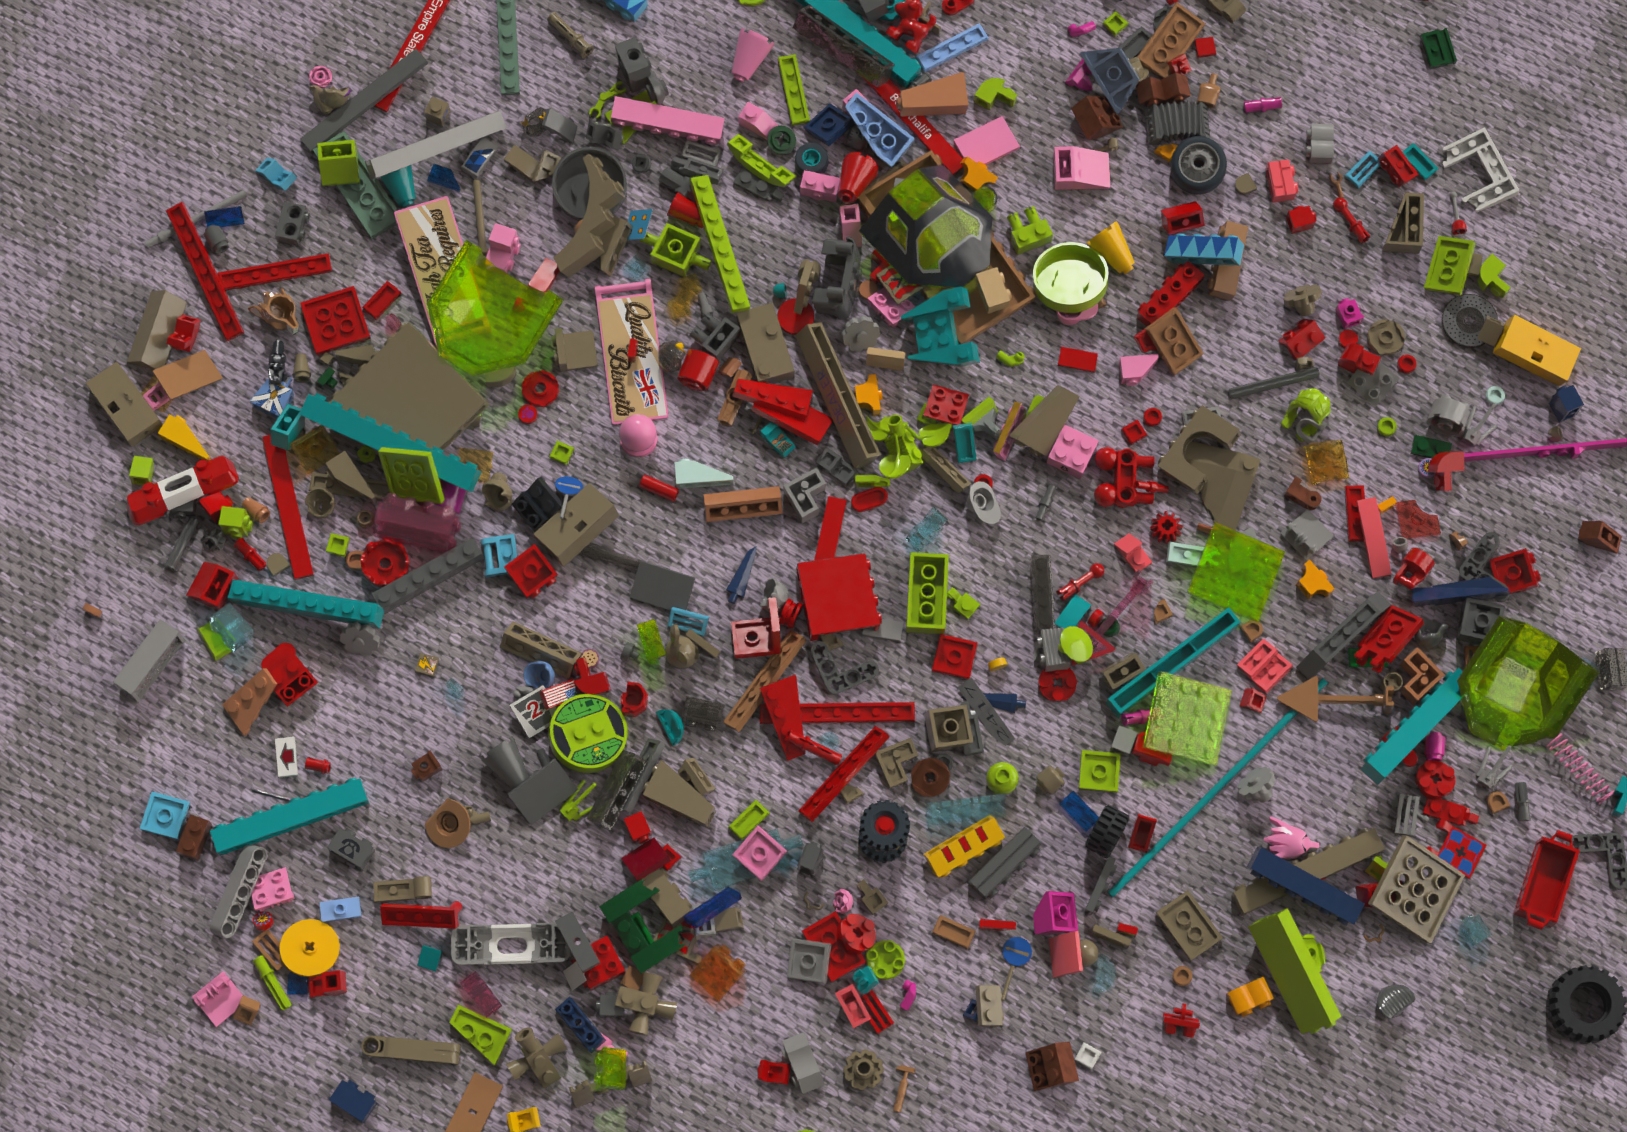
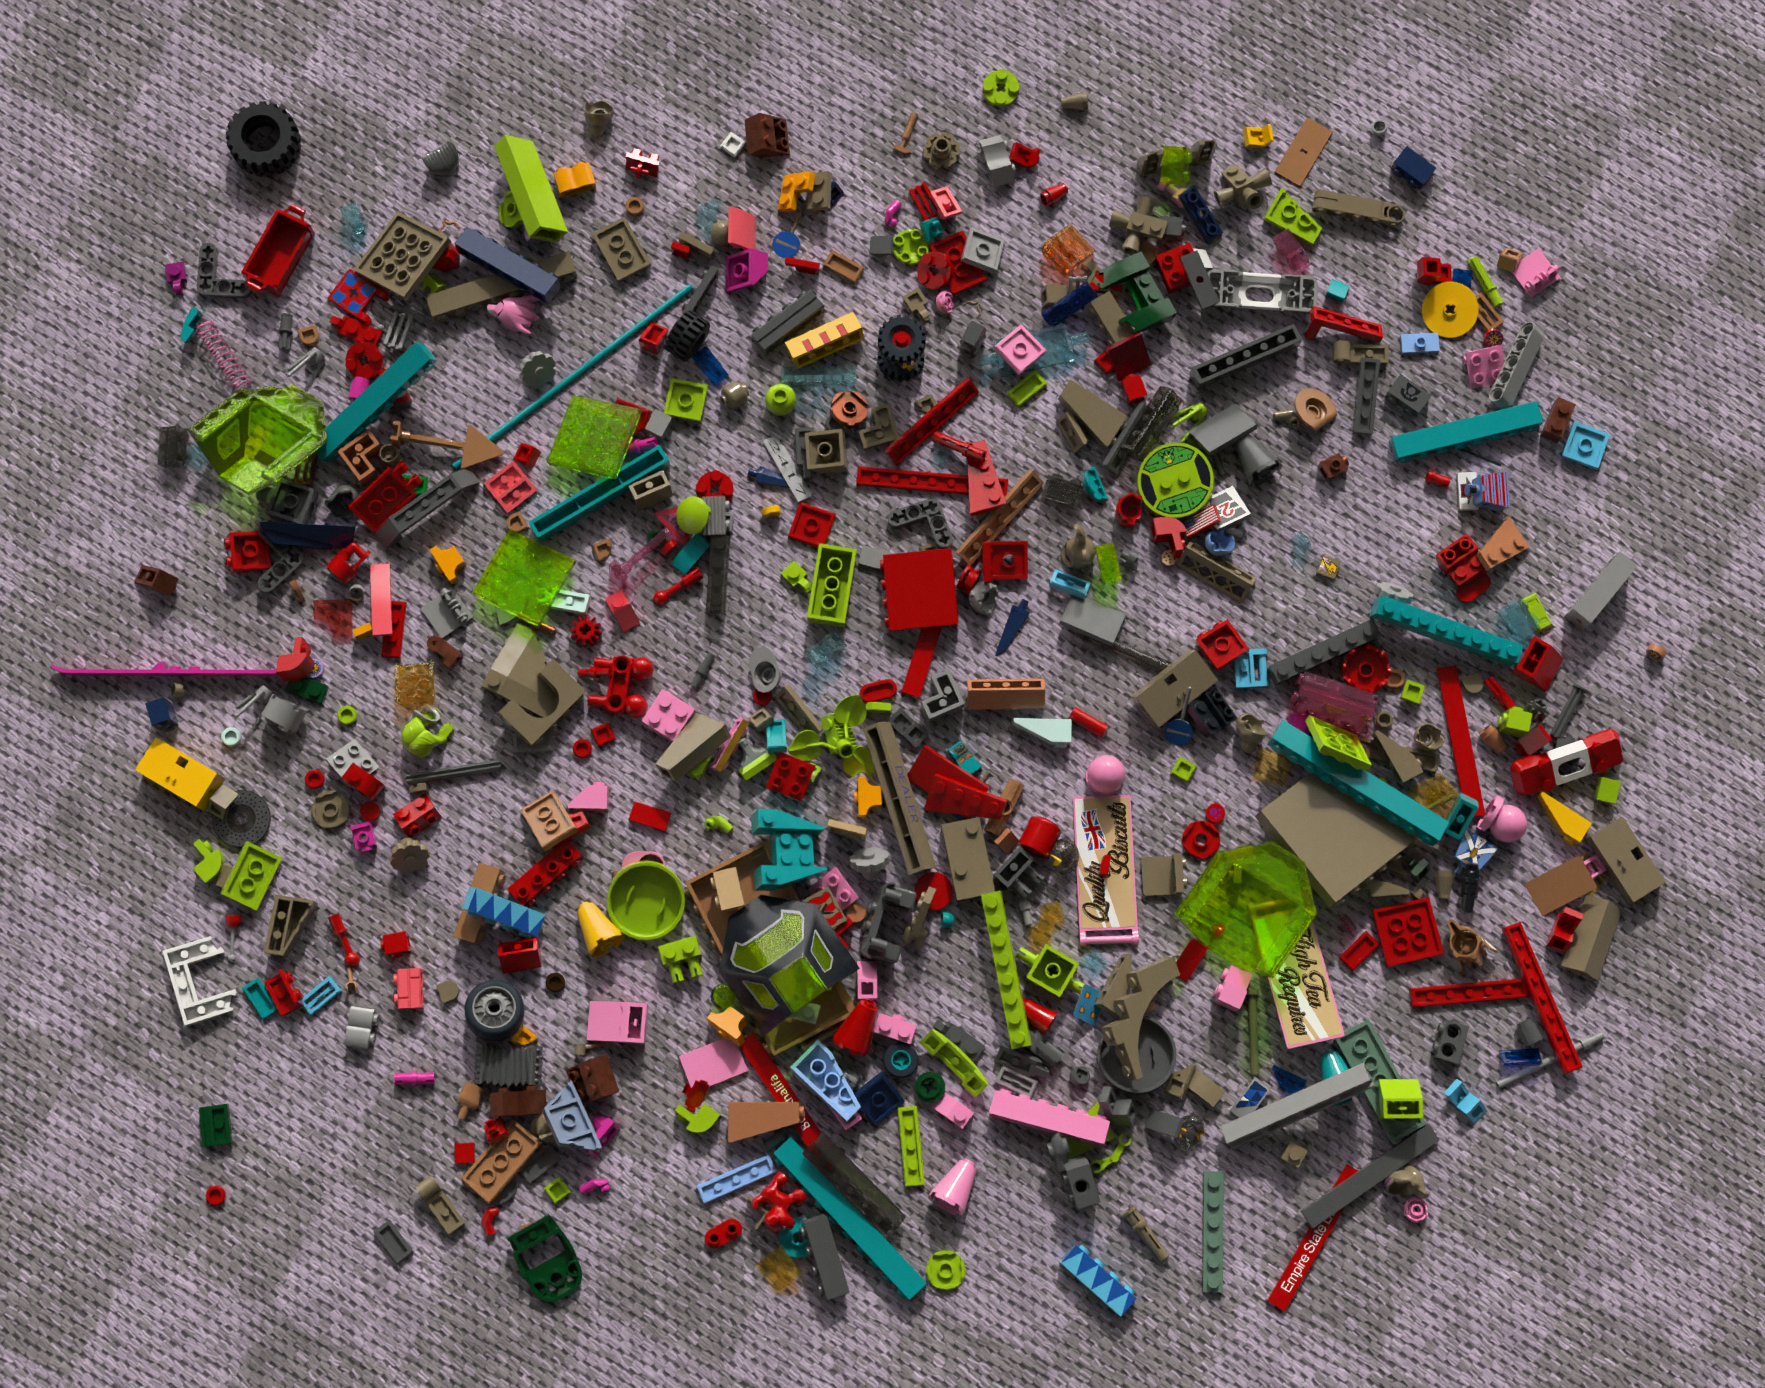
camera: 175 degrees left, 5 degrees up
(244, 426) = (1504, 821): none -> bright pink tile
(264, 755) = (1490, 491): none -> medium blue torso
(395, 843) = (1366, 396): none -> dark grey plate
(523, 871) = (1245, 357): none -> dark grey brick
(702, 642) = (1057, 558): dark tan tile -> none
(738, 1033) = (1053, 194): none -> red cone
(916, 956) = (881, 246): none -> dark grey slope
(981, 459) = (761, 719): none -> dark tan tile
(999, 114) = (695, 1094): none -> red piece
(1017, 1011) = (792, 186): none -> light orange plate
(1145, 201) = (555, 982): none -> dark brown tile
(1237, 1061) = (598, 121): none -> dark tan piece

